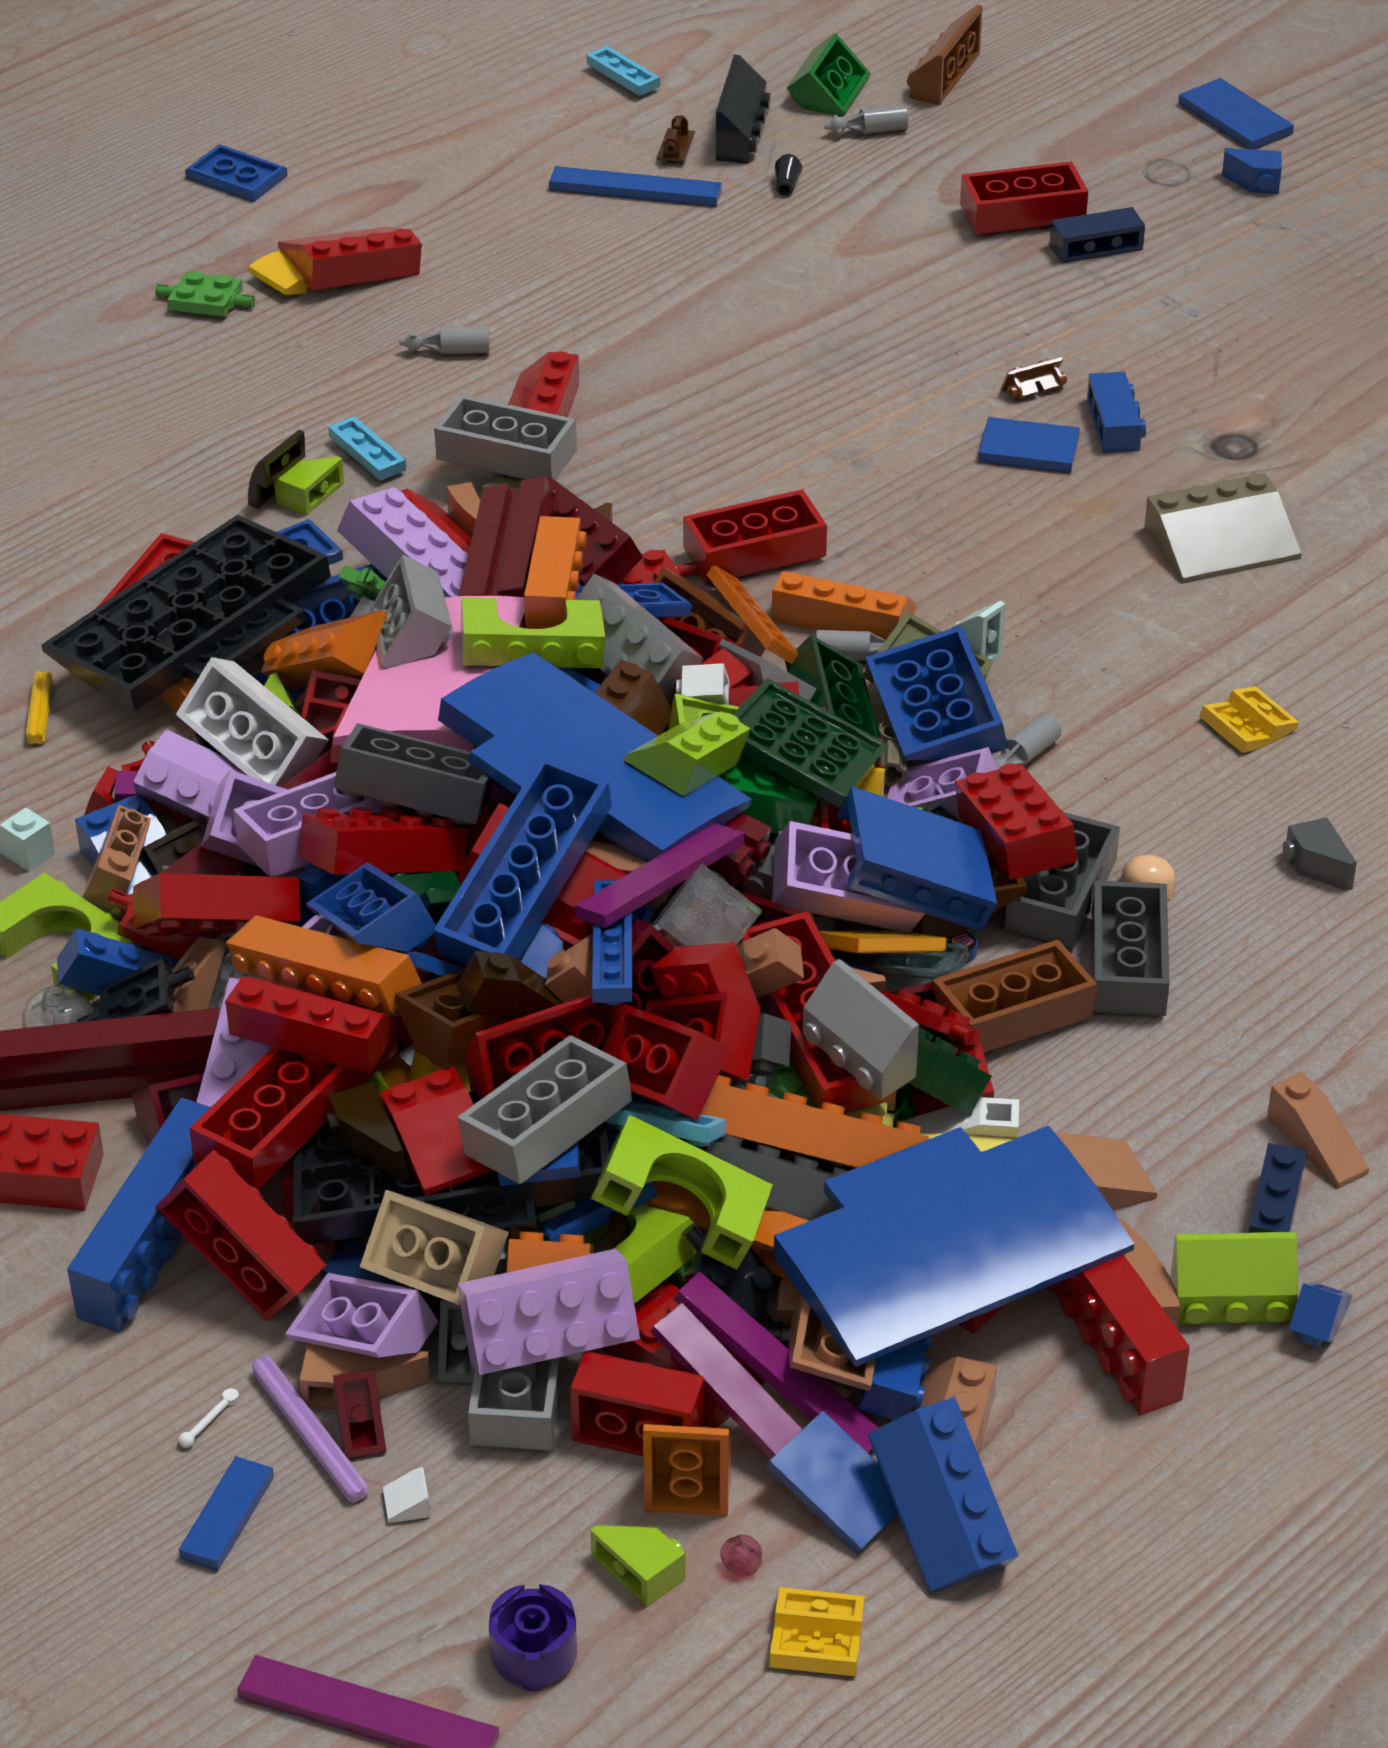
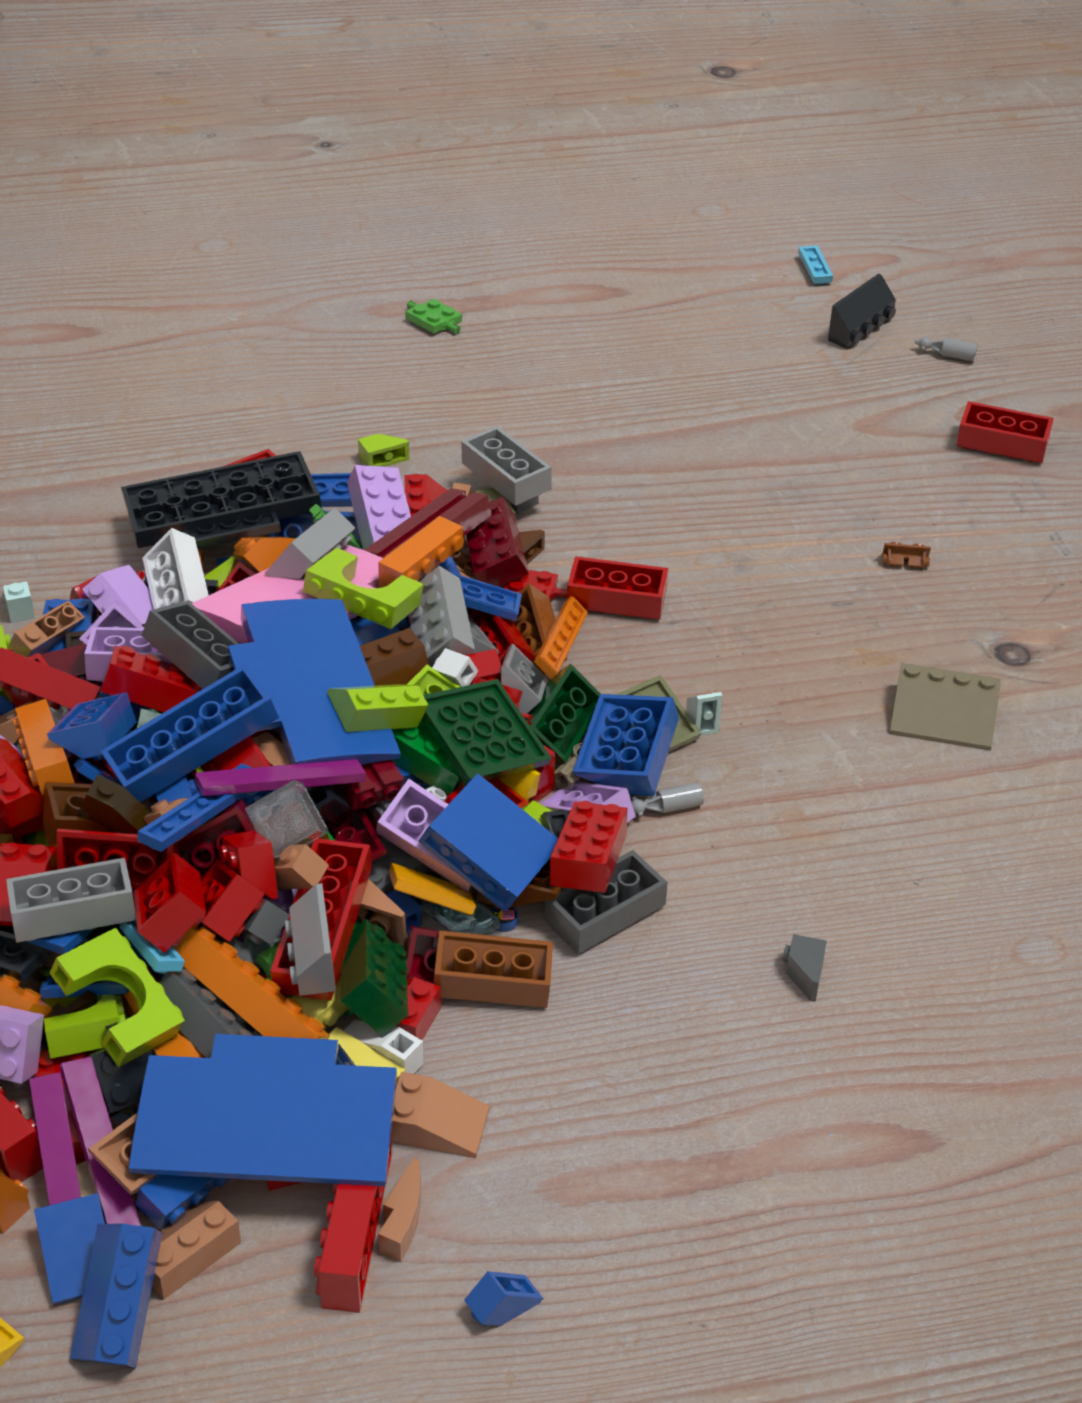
camera: 30 degrees right, 0 degrees up
(39, 707) = (105, 527): yellow axle -> none
(236, 173) = (522, 250): blue tile -> none
(273, 467) = (361, 430): dark brown slope -> none
(279, 273) = (495, 317): yellow slope -> none
(354, 256) = (537, 323): red slope -> none
(367, 448) = (438, 442): medium azure plate -> none
(451, 340) = (551, 395): light grey wheel -> none
(548, 384) = (576, 451): red slope -> none
(635, 186) = (758, 339): blue tile -> none
(676, 141) = (808, 319): reddish brown hinge -> none
(787, 173) = (863, 362): black cone -> none
(829, 78) = (945, 311): green slope -> none
(836, 605) = (632, 654): orange slope -> none
(852, 643) = (610, 680): light grey wheel -> none
(932, 1015) = (407, 956): red plate -> none
(947, 59) = (1037, 325): dark orange slope -> none
(1029, 444) = (865, 598): blue tile -> none
(1097, 235) = (1038, 474): dark blue brick -> none
(1115, 412) = (941, 598): blue brick -> none
(1130, 947) = (606, 971): dark grey brick -> none
(1150, 869) = (671, 929): light nougat hair -> none
(1235, 1277) = (455, 1241): lime slope -> none
(1249, 719) = (846, 847): yellow slope -> none
(1278, 1189) = (541, 1203): dark blue brick -> none
(1313, 1125) = (621, 1165): nougat slope -> none

